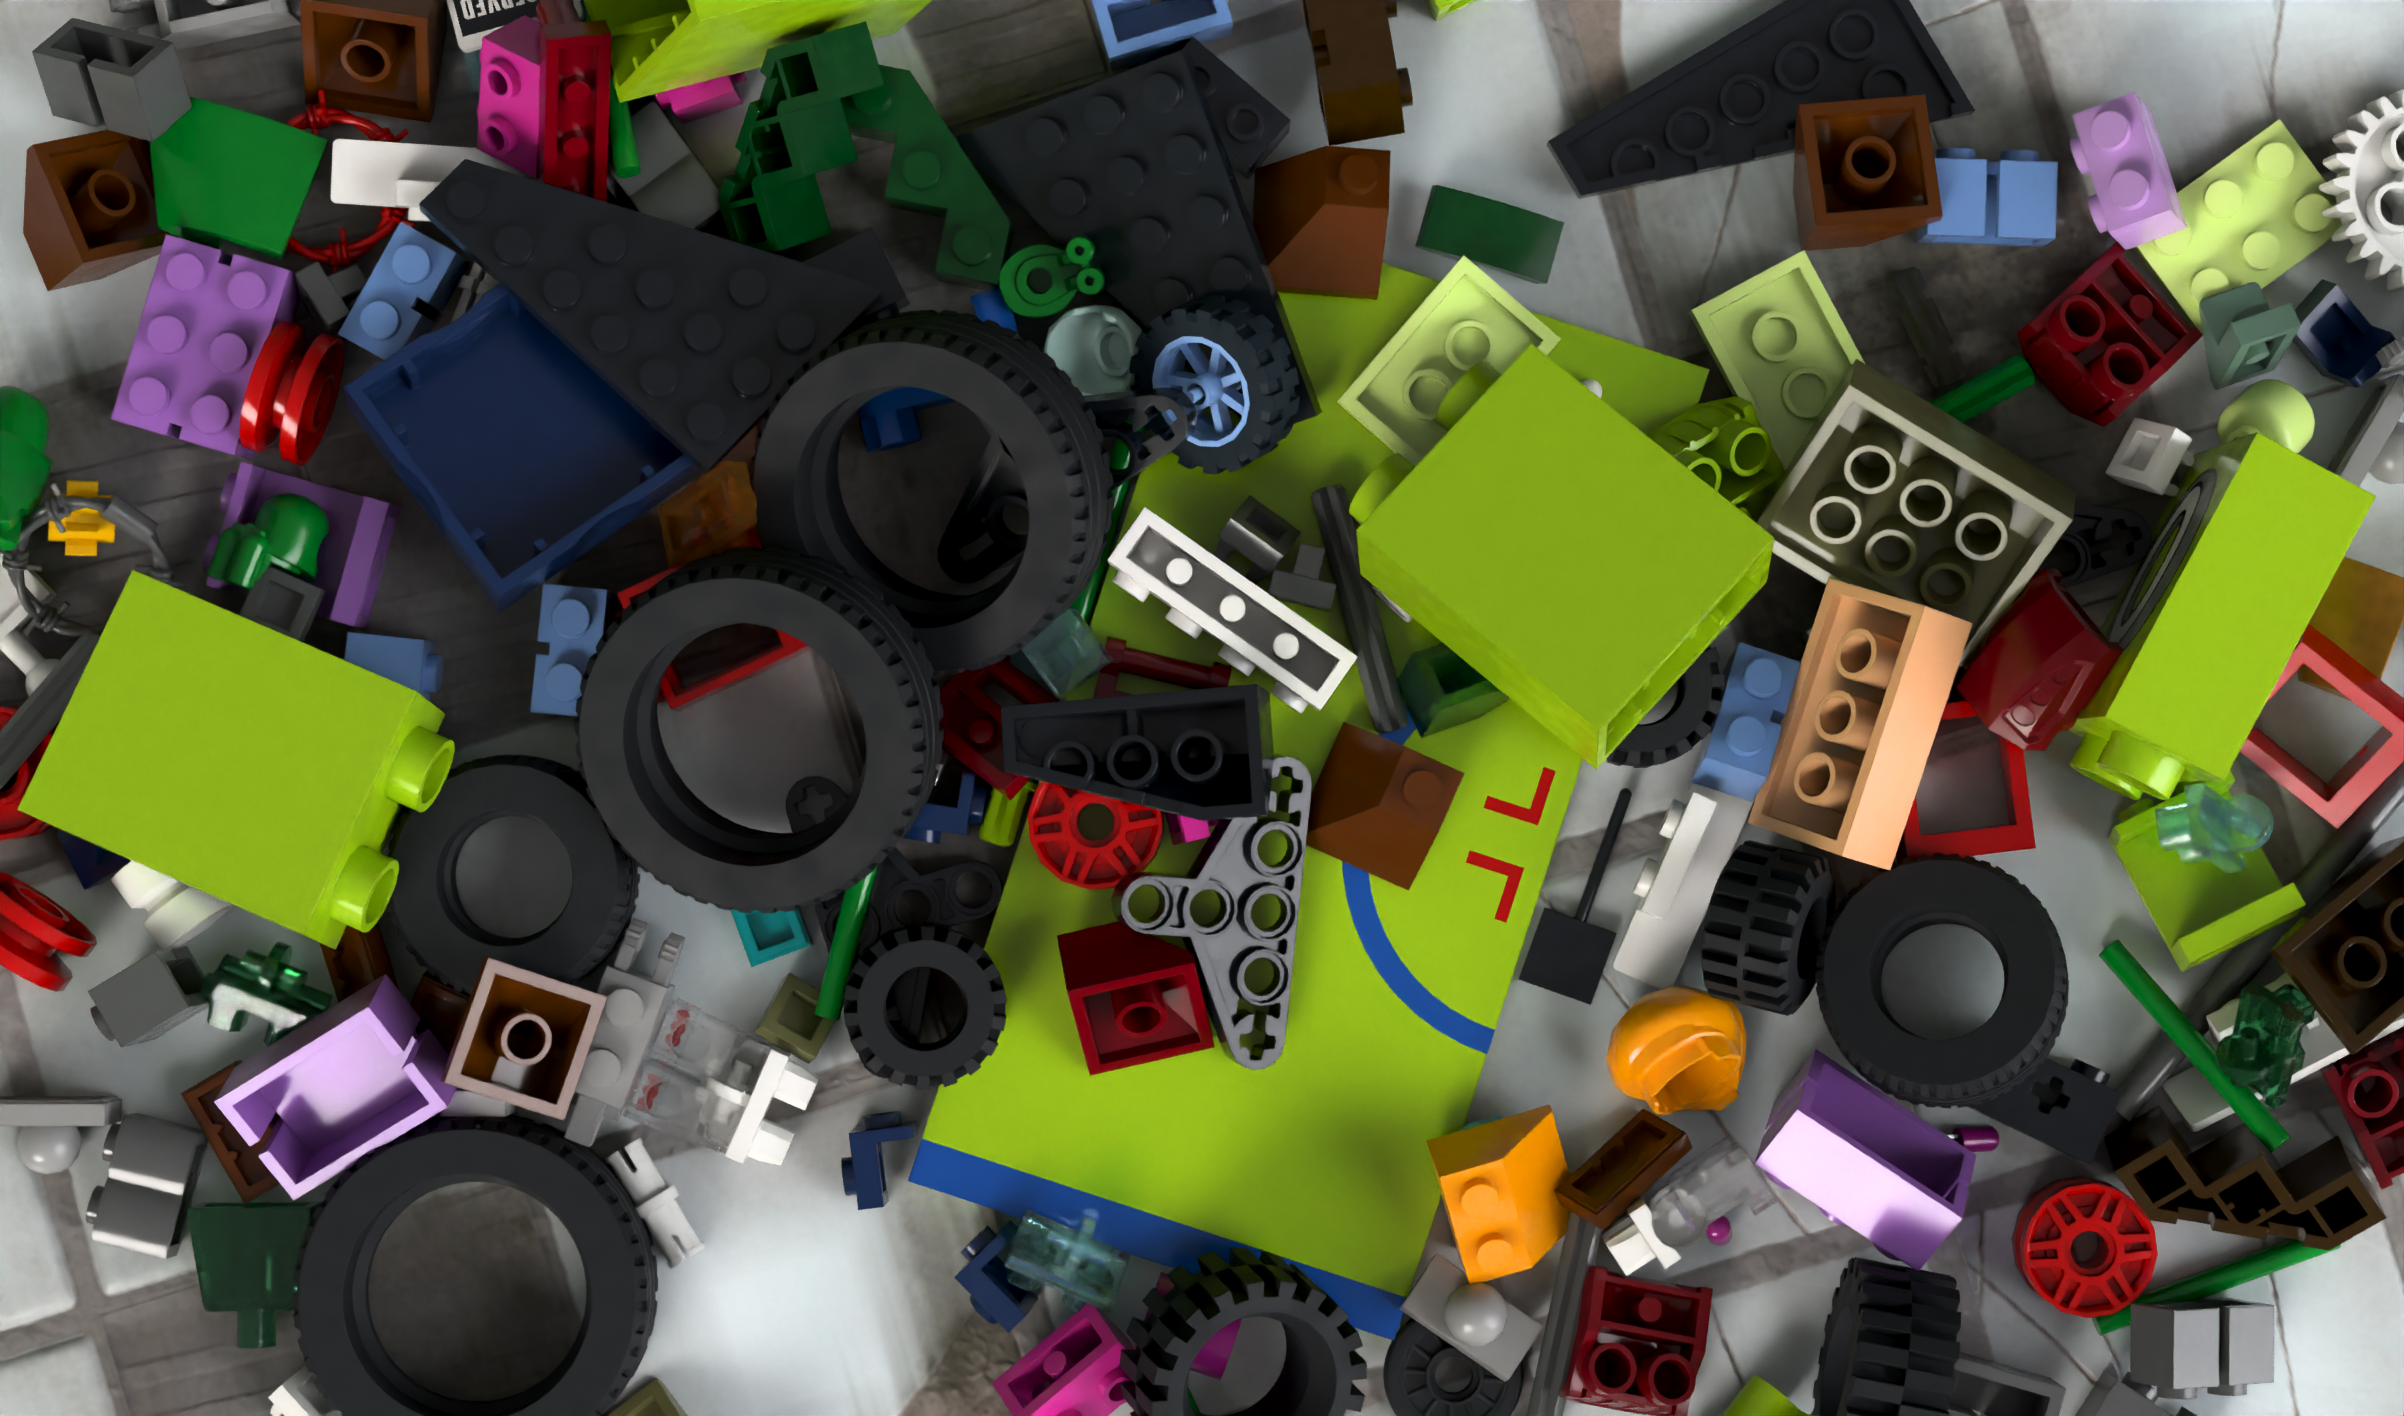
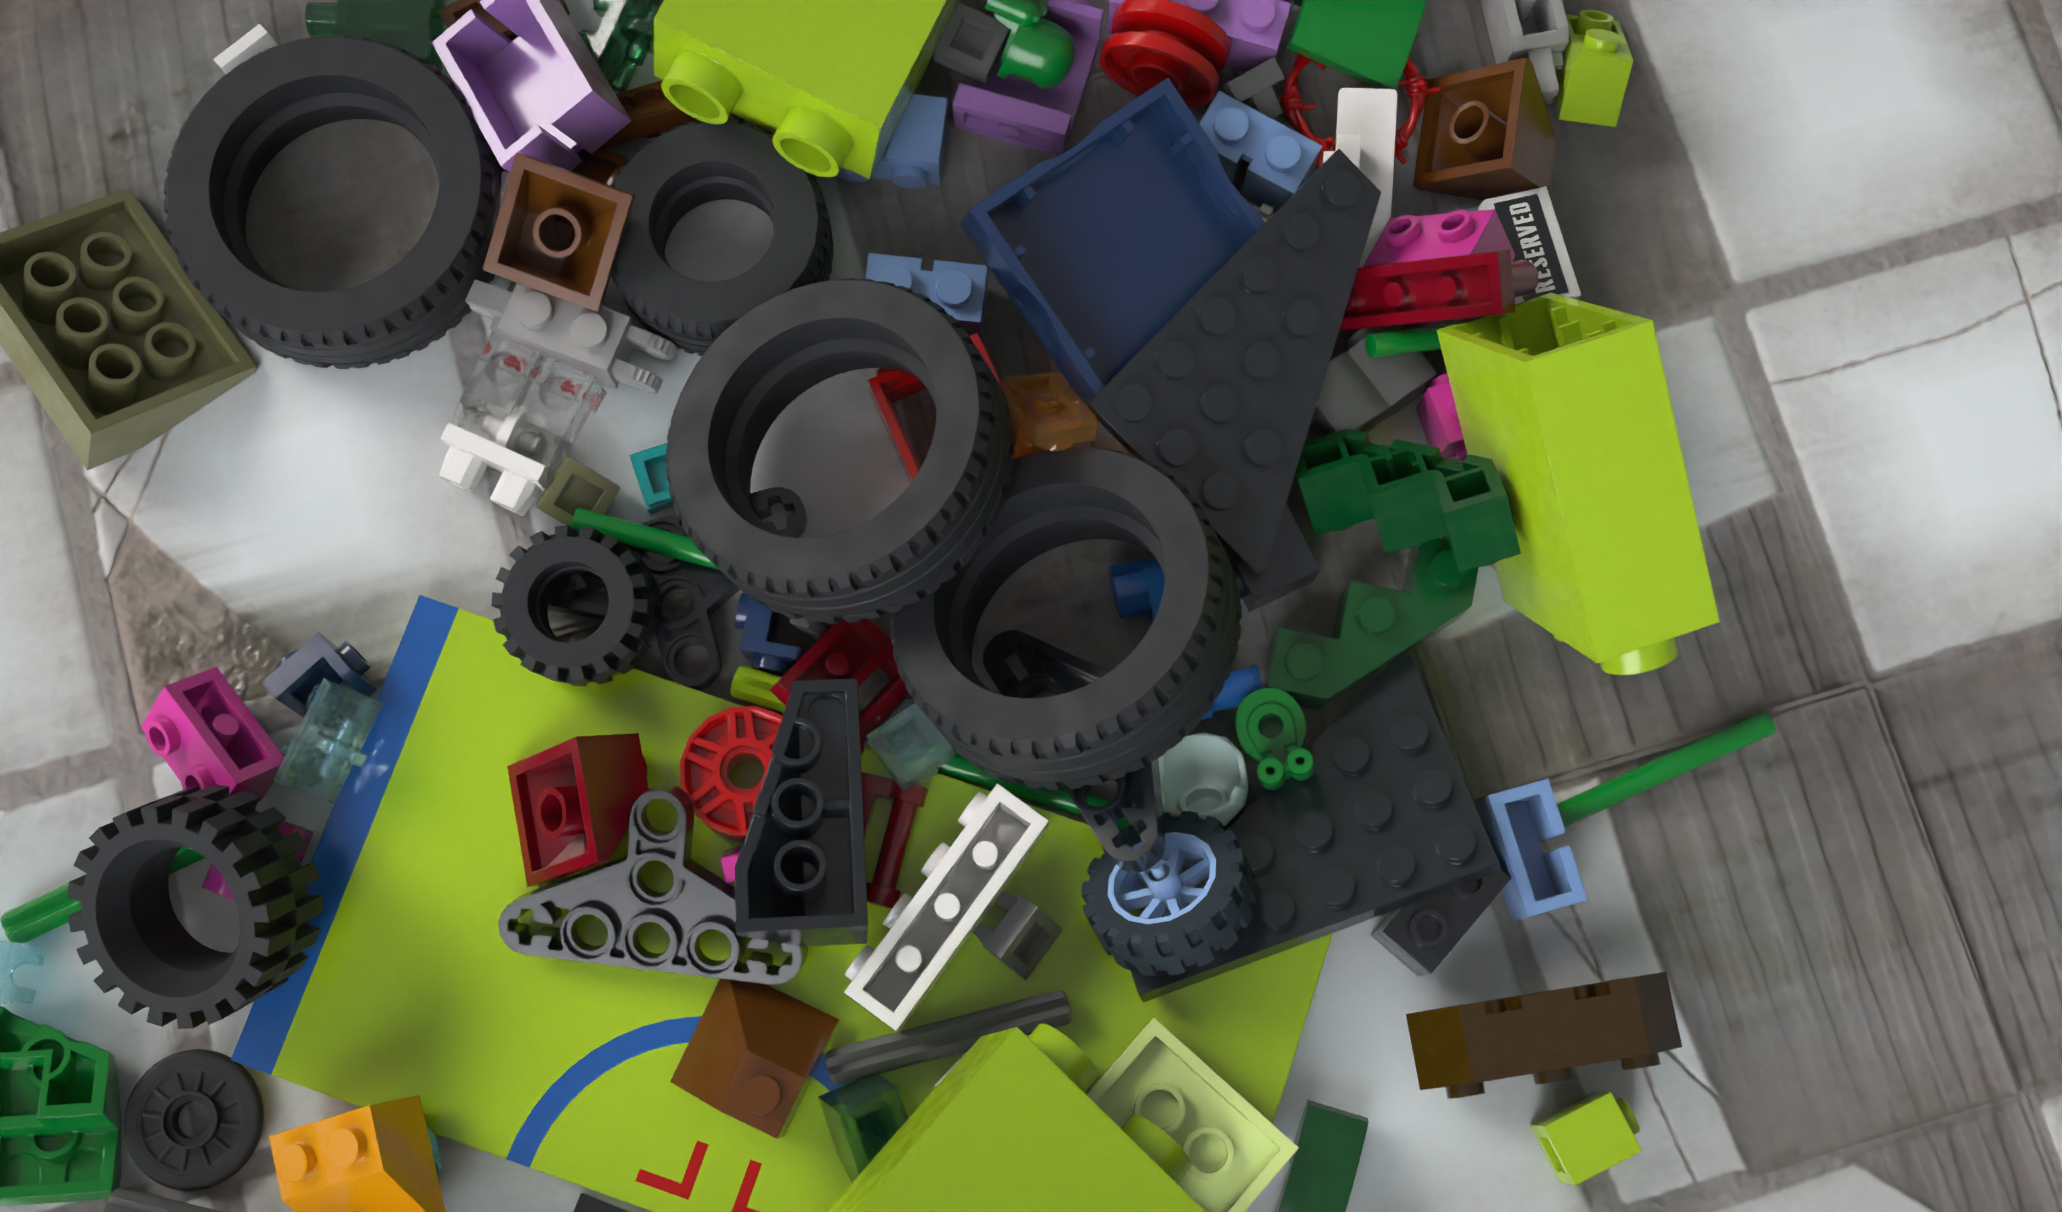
camera: 85 degrees right, 10 degrees down
(655, 1203) = (415, 366): white pin -> none
(865, 1170) = (433, 555): dark blue bracket -> none
(1303, 585) = (973, 980): dark grey tile -> none
(1324, 220) = (1331, 1008): reddish brown slope -> none
(1471, 1317) = (241, 1138): light grey tile -> none

